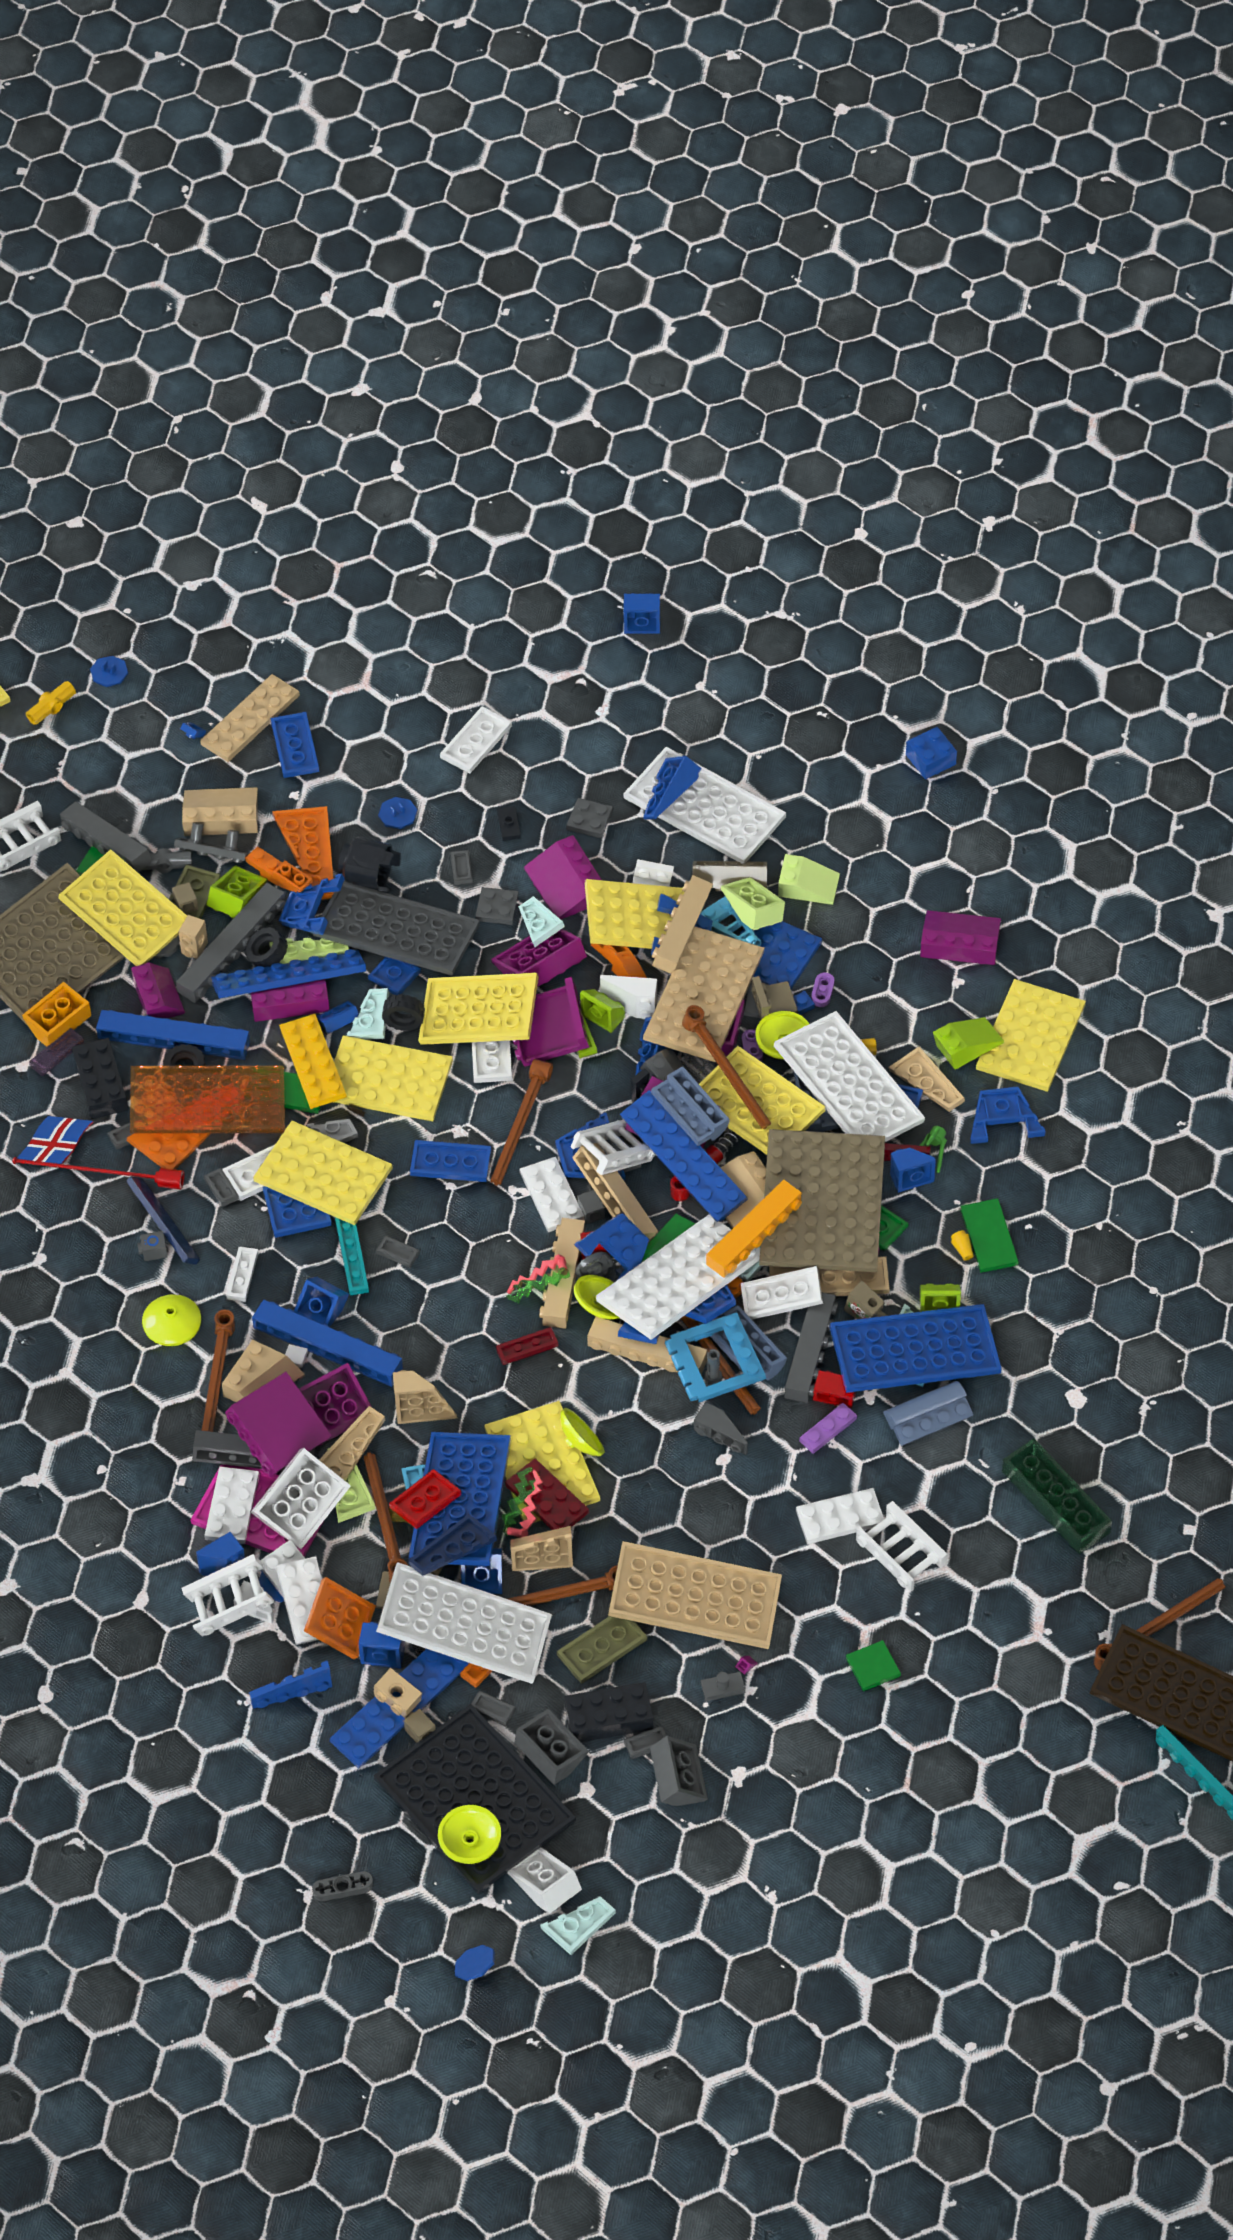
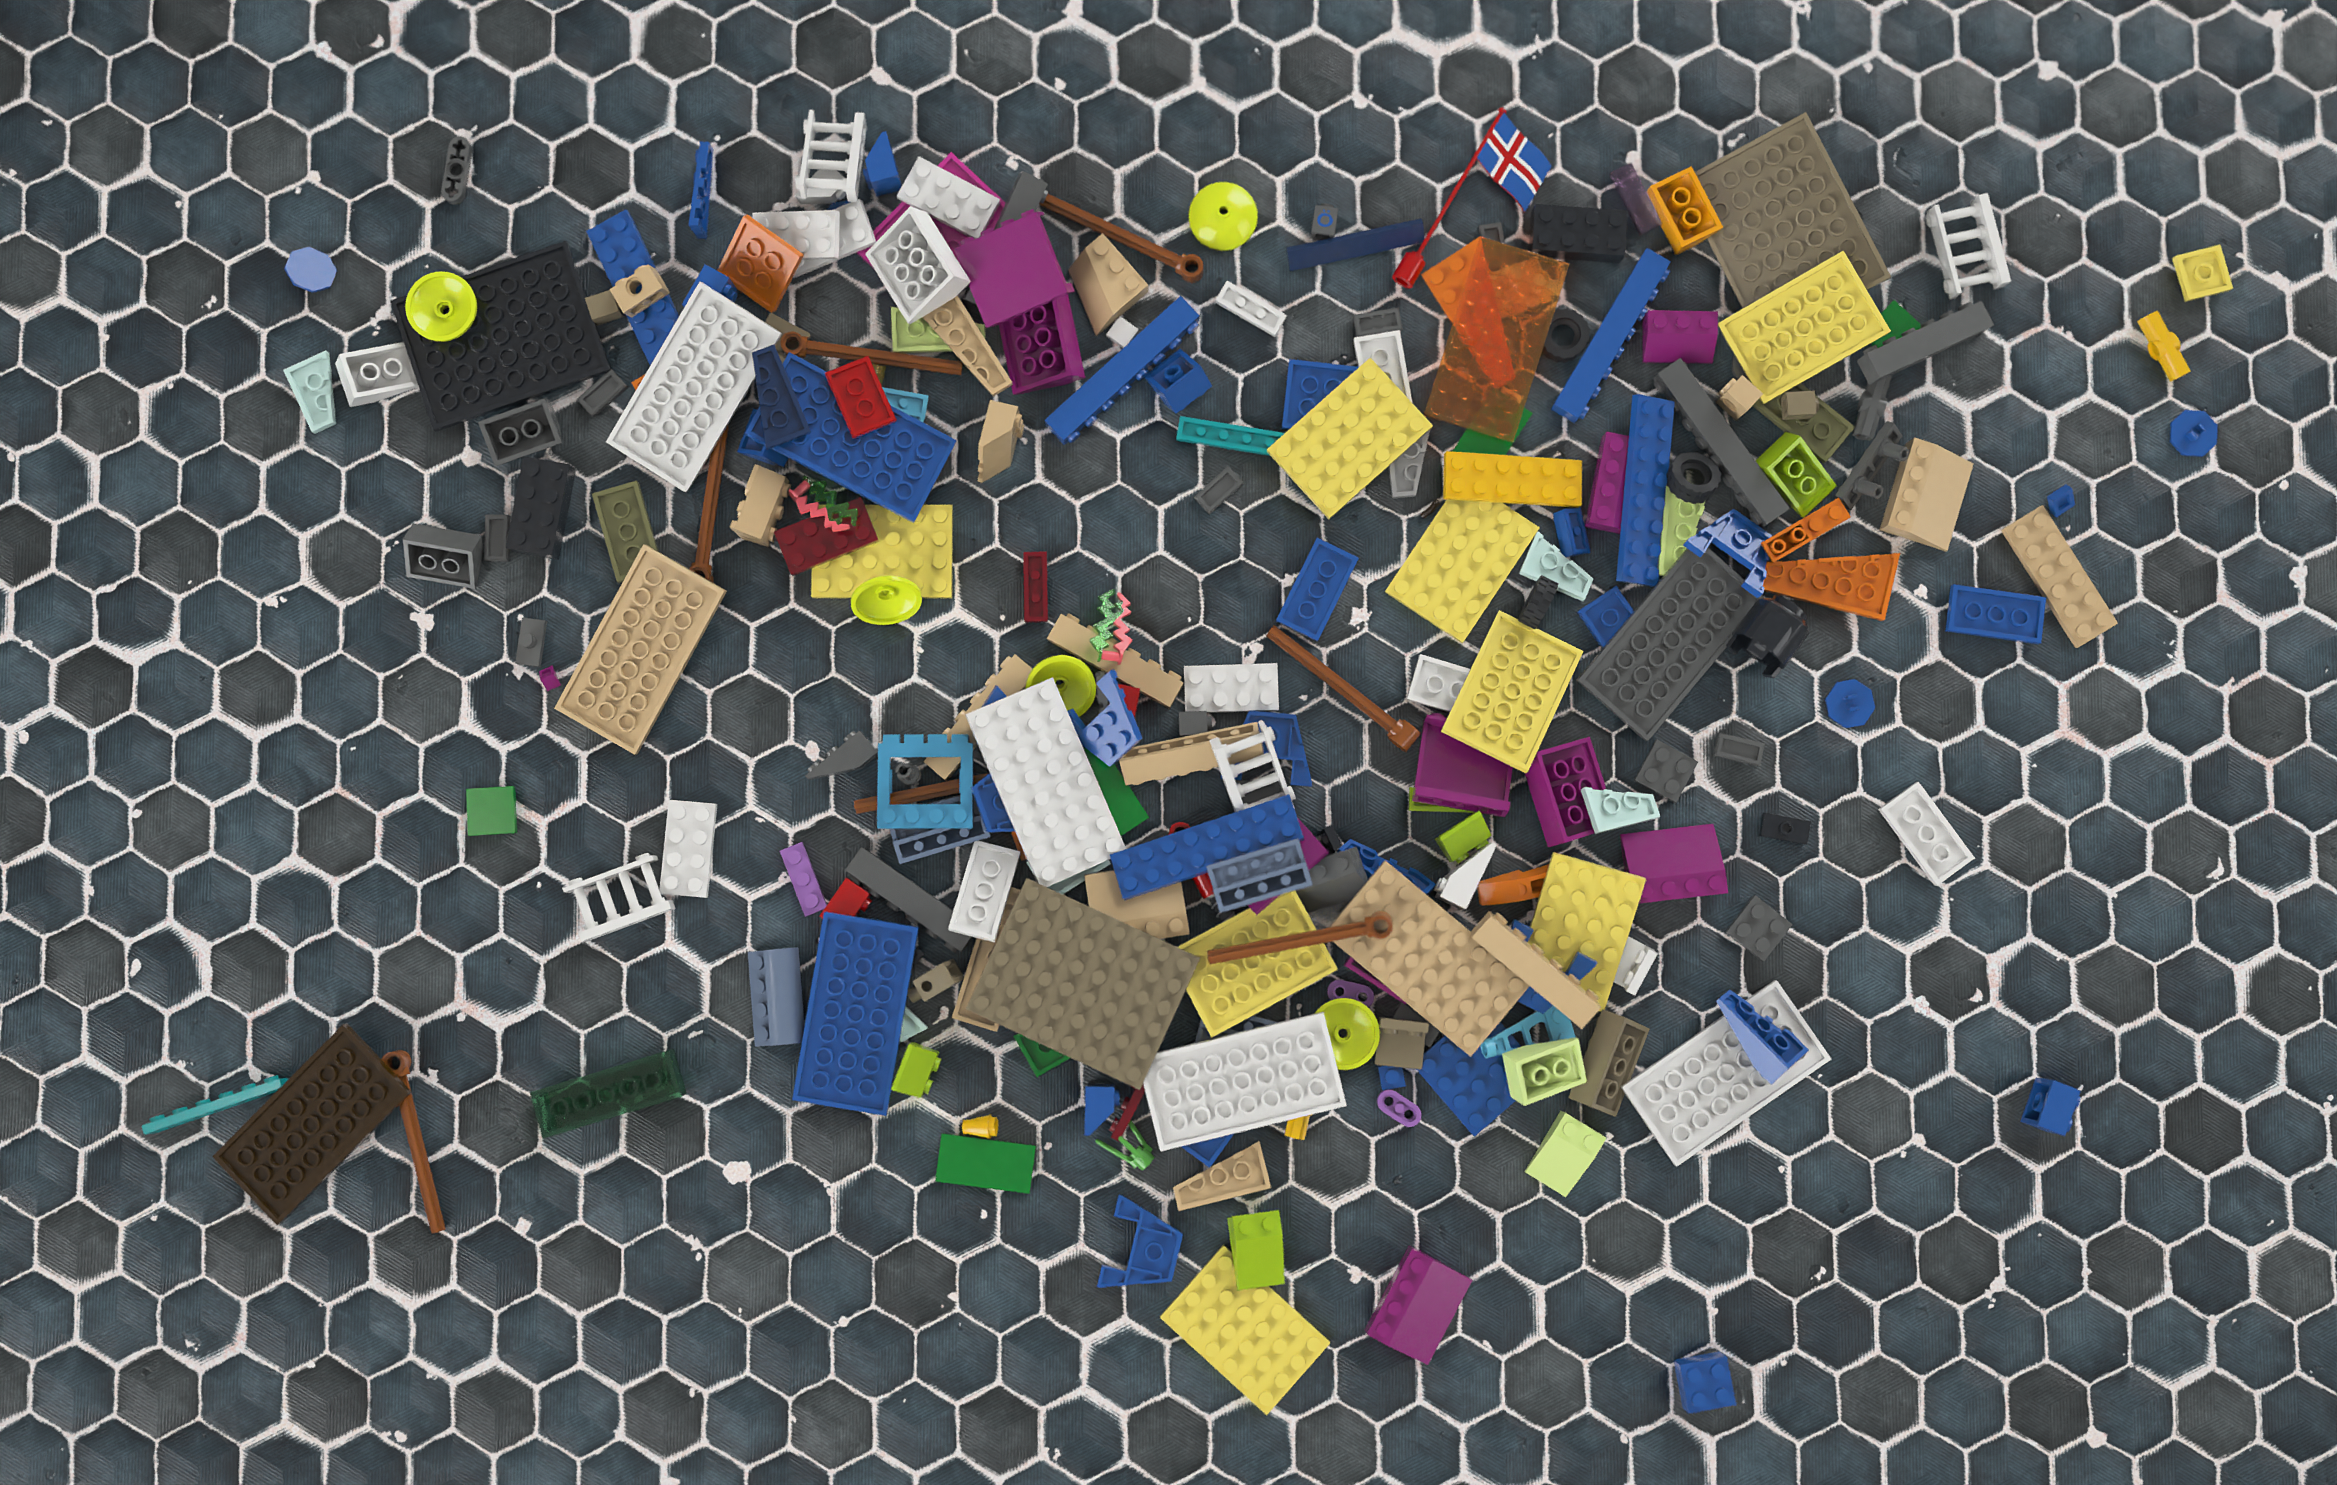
camera: 105 degrees right, 30 degrees up
(754, 1228) = (1060, 883): light orange brick -> none

